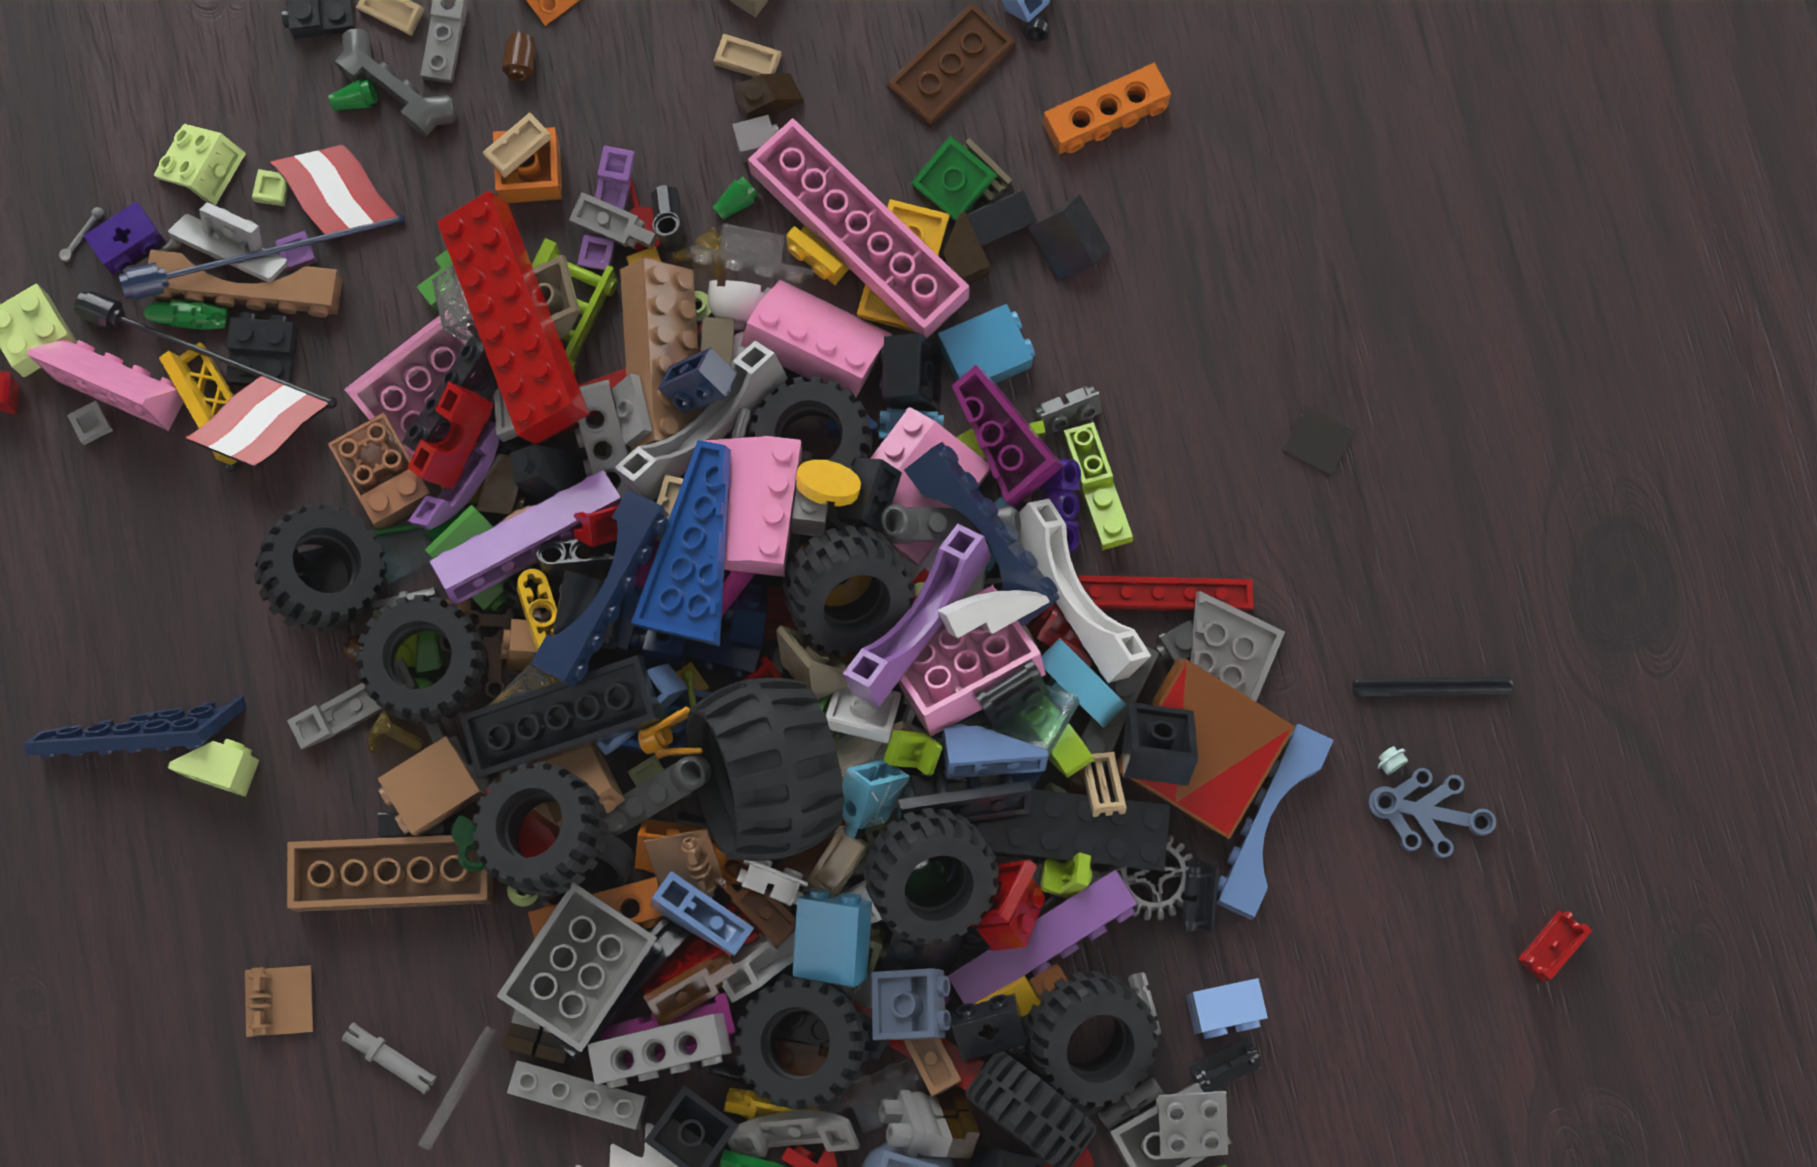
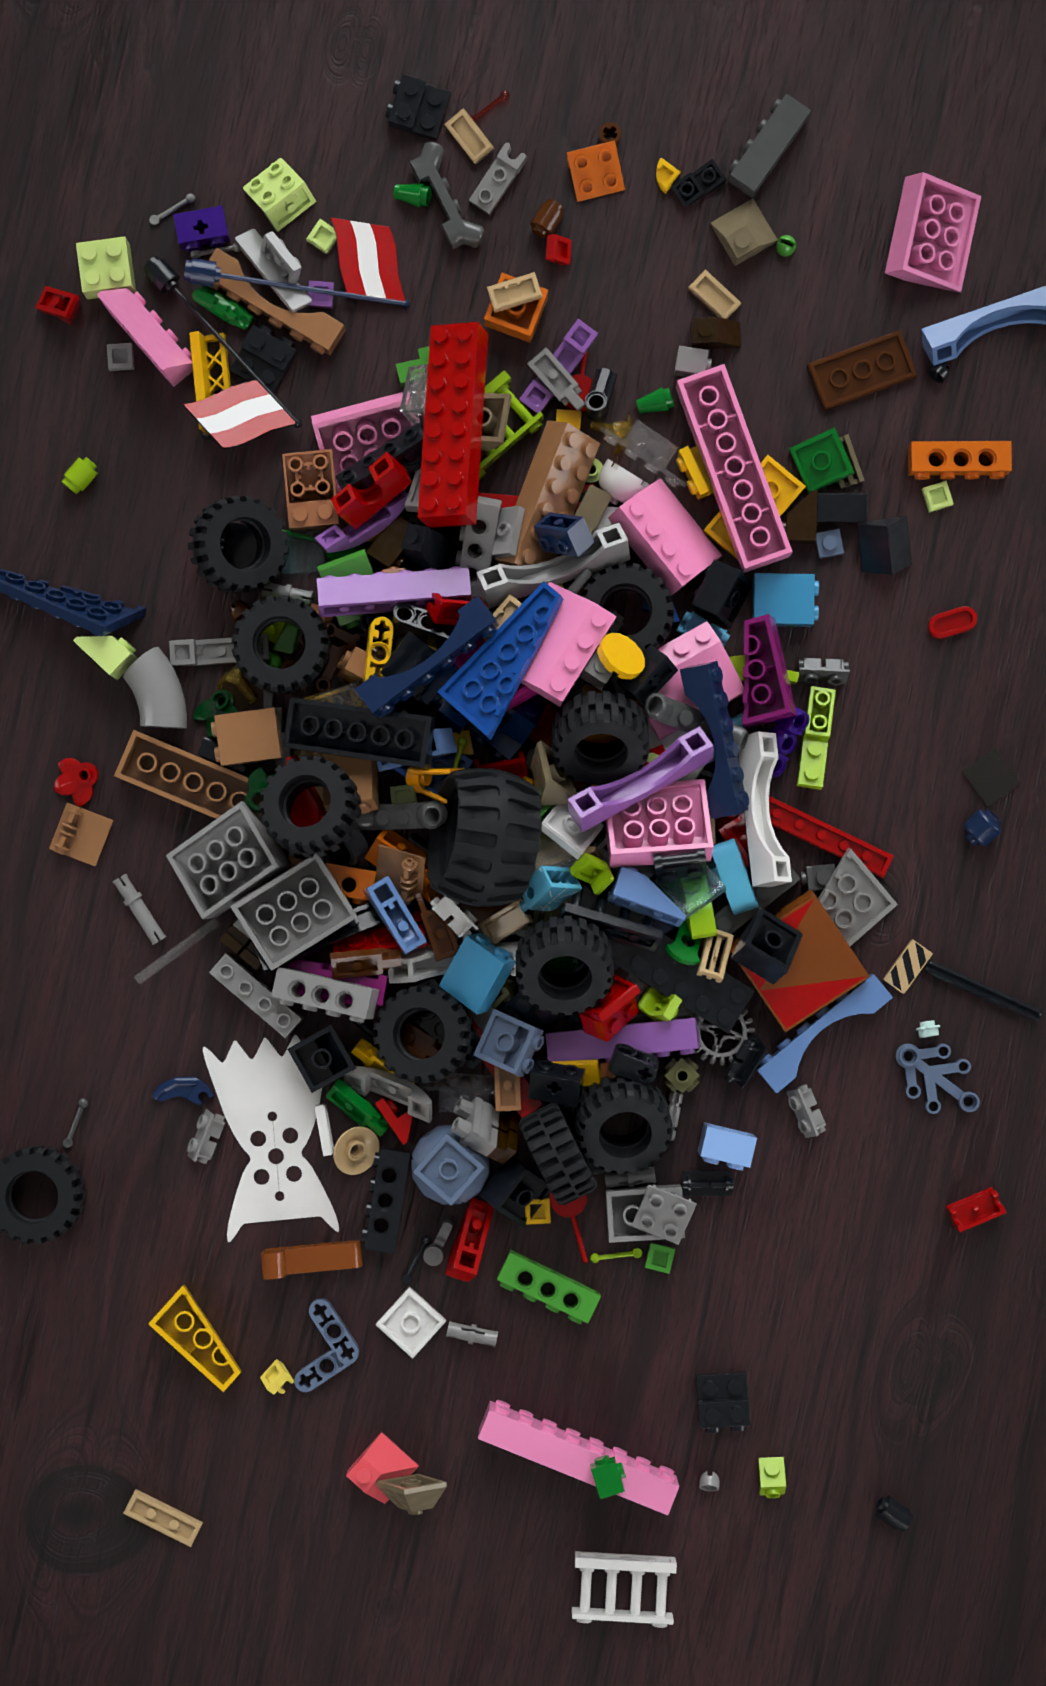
camera: 30 degrees right, 10 degrees up
(98, 577) = (80, 475): none -> lime brick
(241, 941) = (73, 781): none -> red plate
(297, 785) = (157, 691): none -> light grey brick
(367, 782) = (213, 706): none -> dark green plate
(469, 946) = (227, 861): none -> light grey slope
(547, 83) = (558, 249): none -> red plate
(989, 610) = (693, 800): white slope -> none
(1007, 266) = (829, 543): none -> sand blue plate
(1063, 799) = (681, 952): none -> green piece
(1065, 958) = (630, 1064): none -> black piece
(1102, 161) = (937, 496): none -> yellowish green tile
(1123, 958) = (672, 1069): none -> olive brick
(1188, 290) = (952, 622): none -> red tile
(1309, 934) = (809, 1122): none -> light grey hinge
(1332, 699) = (907, 966): none -> tan tile
(1337, 500) = (982, 827): none -> dark blue head

